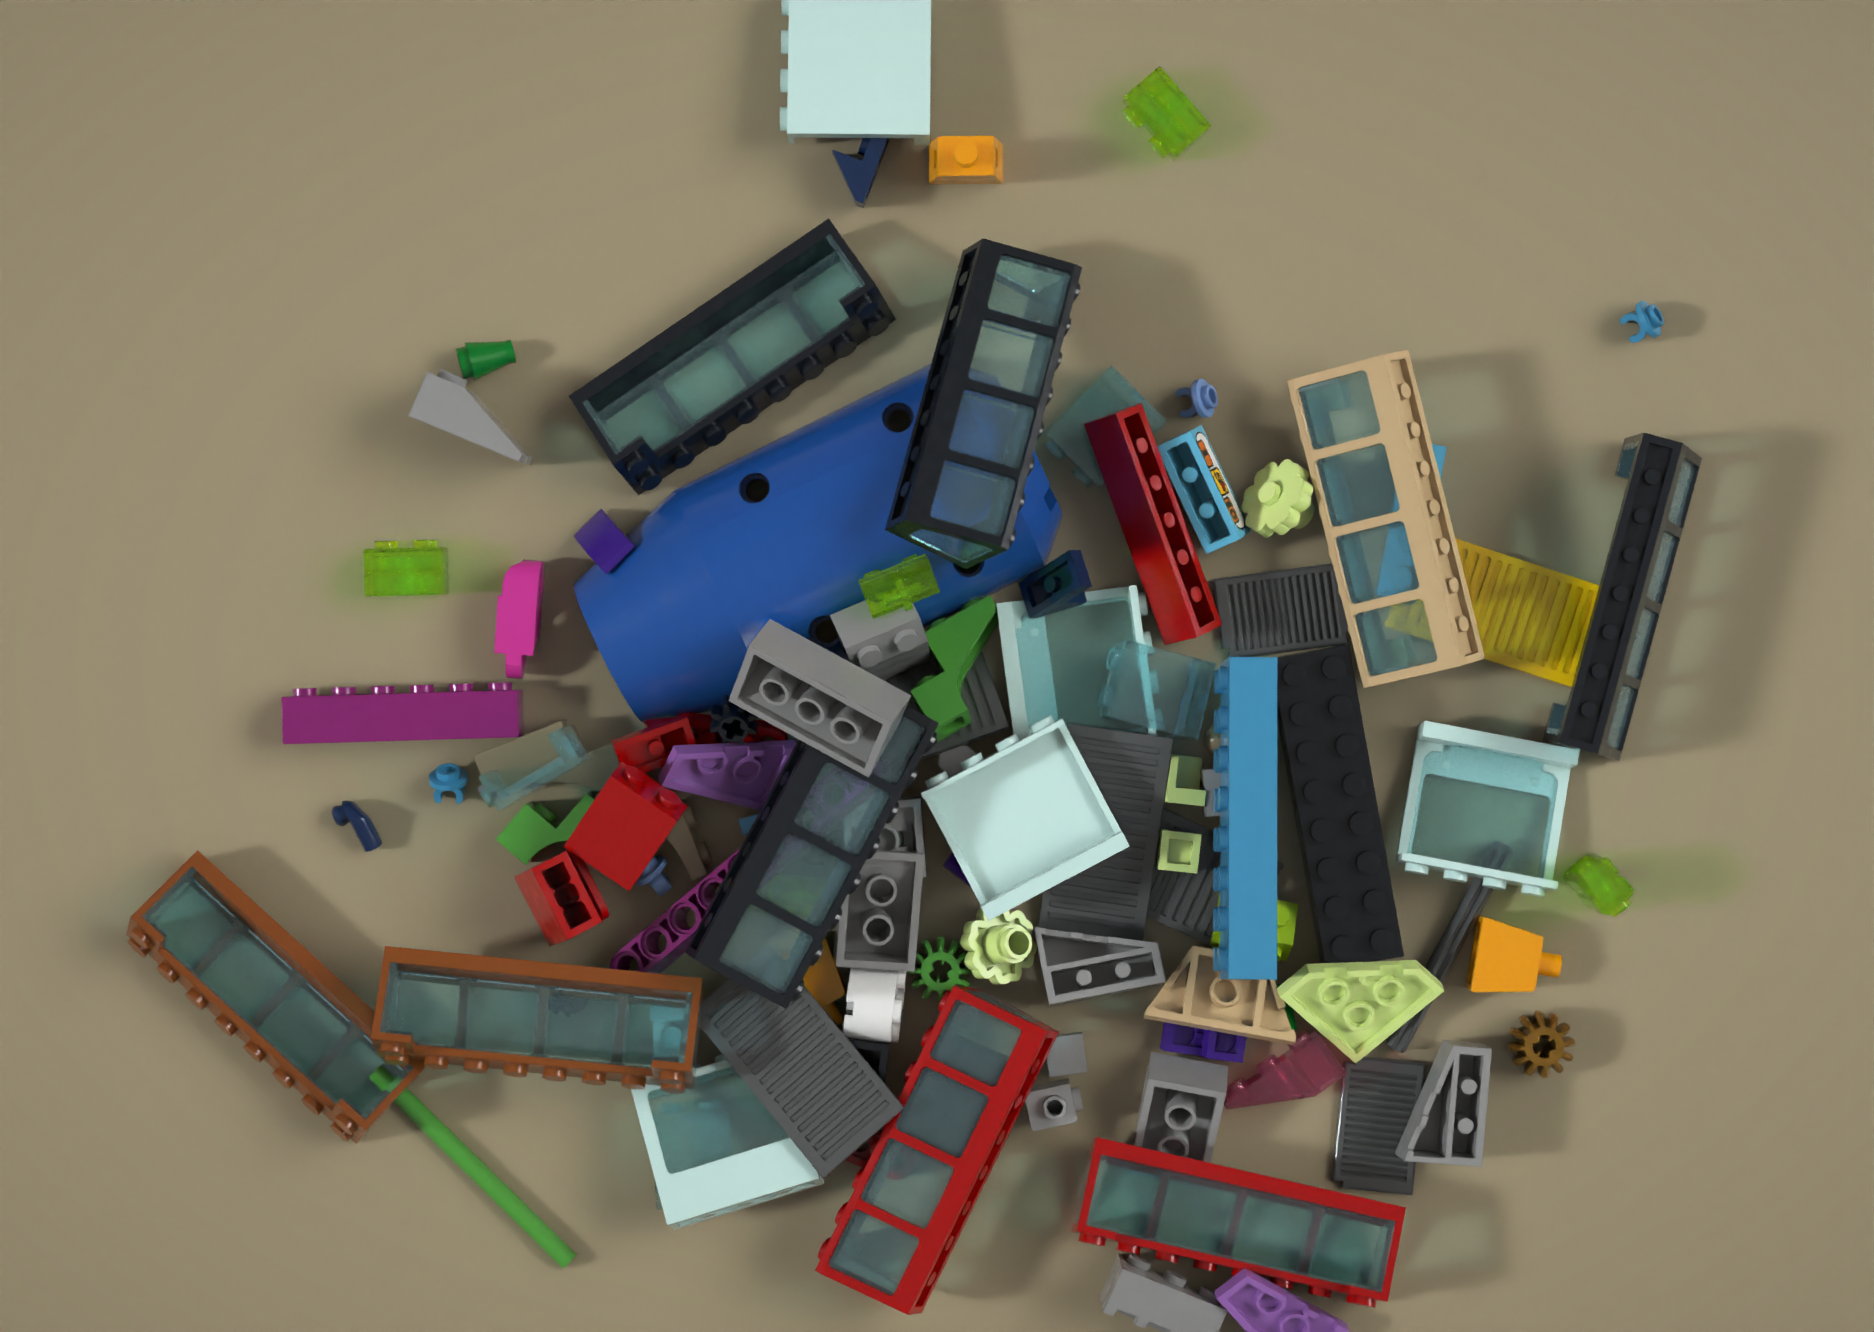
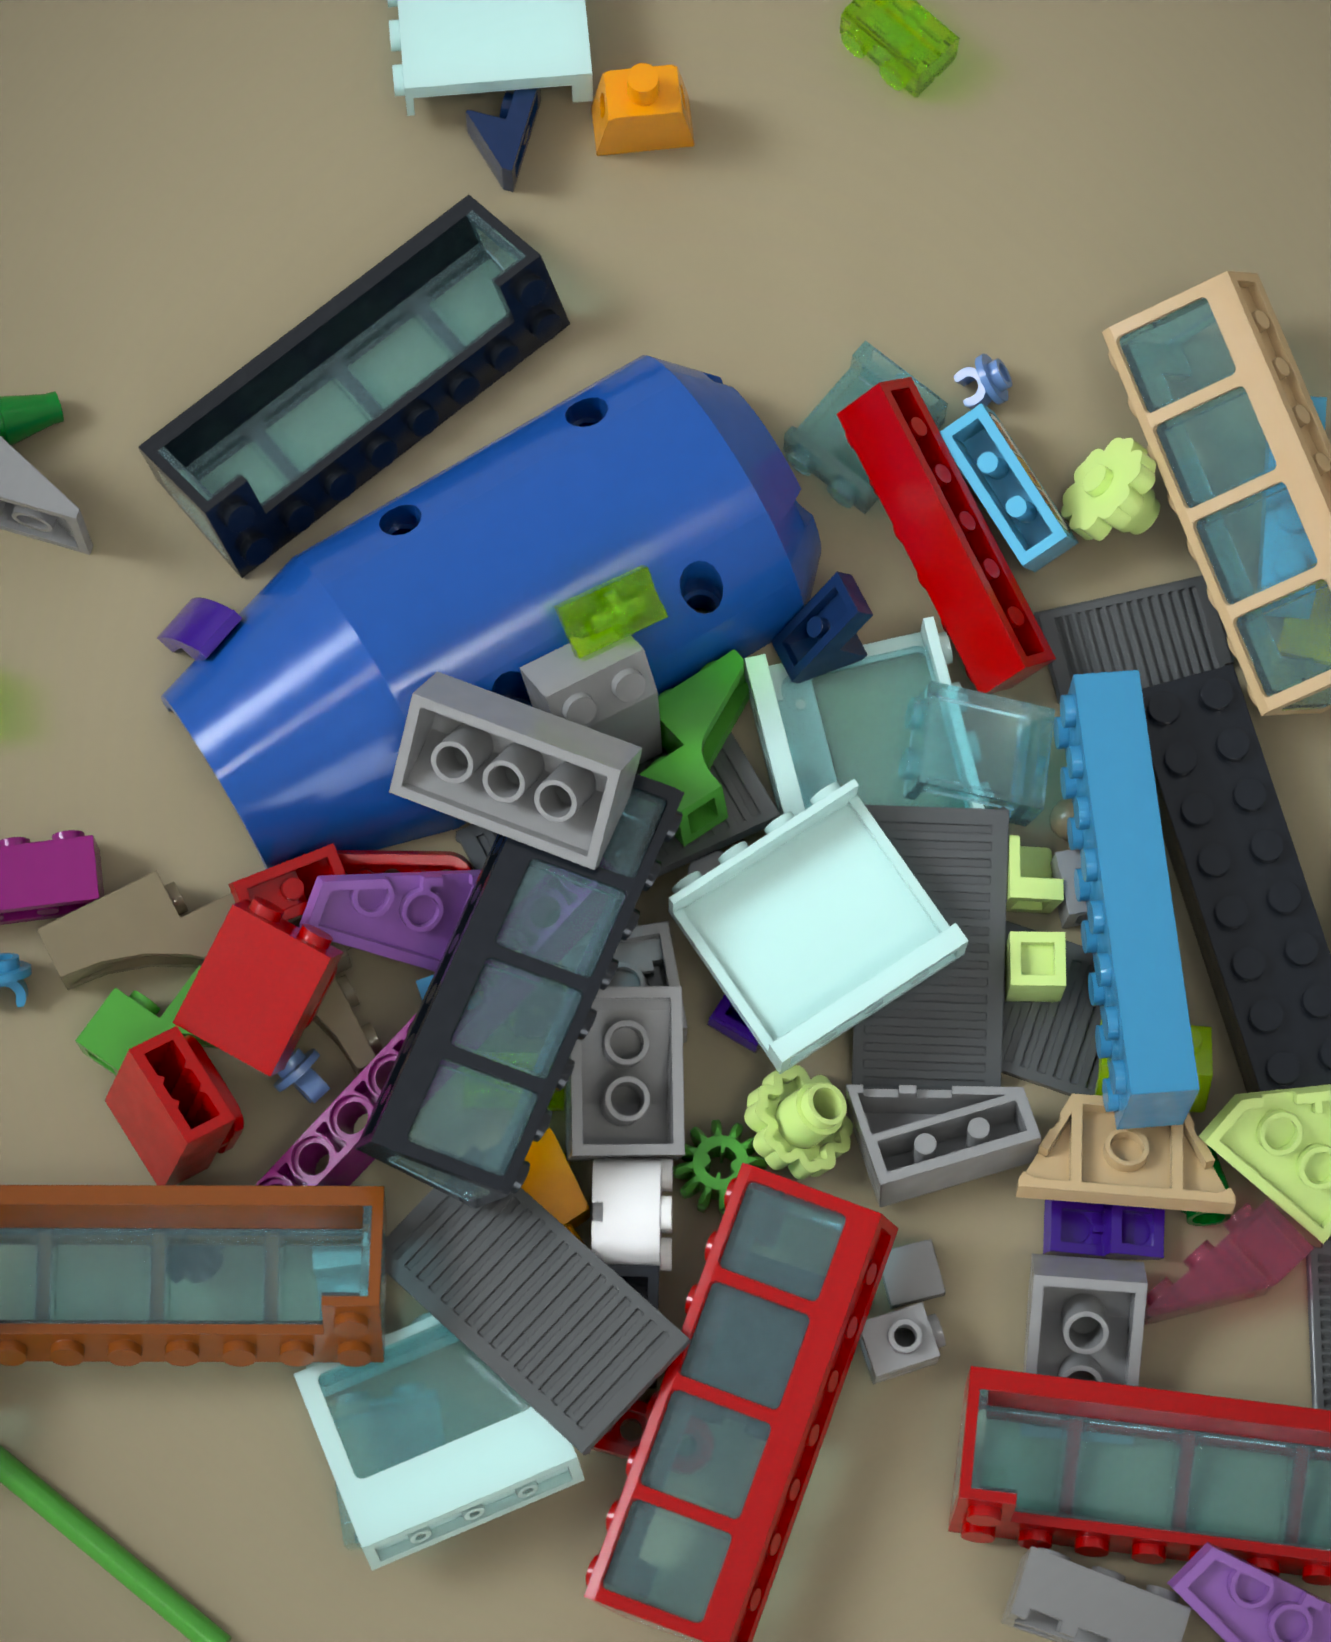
camera: 10 degrees left, 15 degrees down
(519, 615) = (90, 740): dark pink piece -> none
(571, 756) = (132, 932): clear light blue panel -> none
(732, 722) = (406, 851): black gear -> none
(984, 402) = (700, 380): window -> none

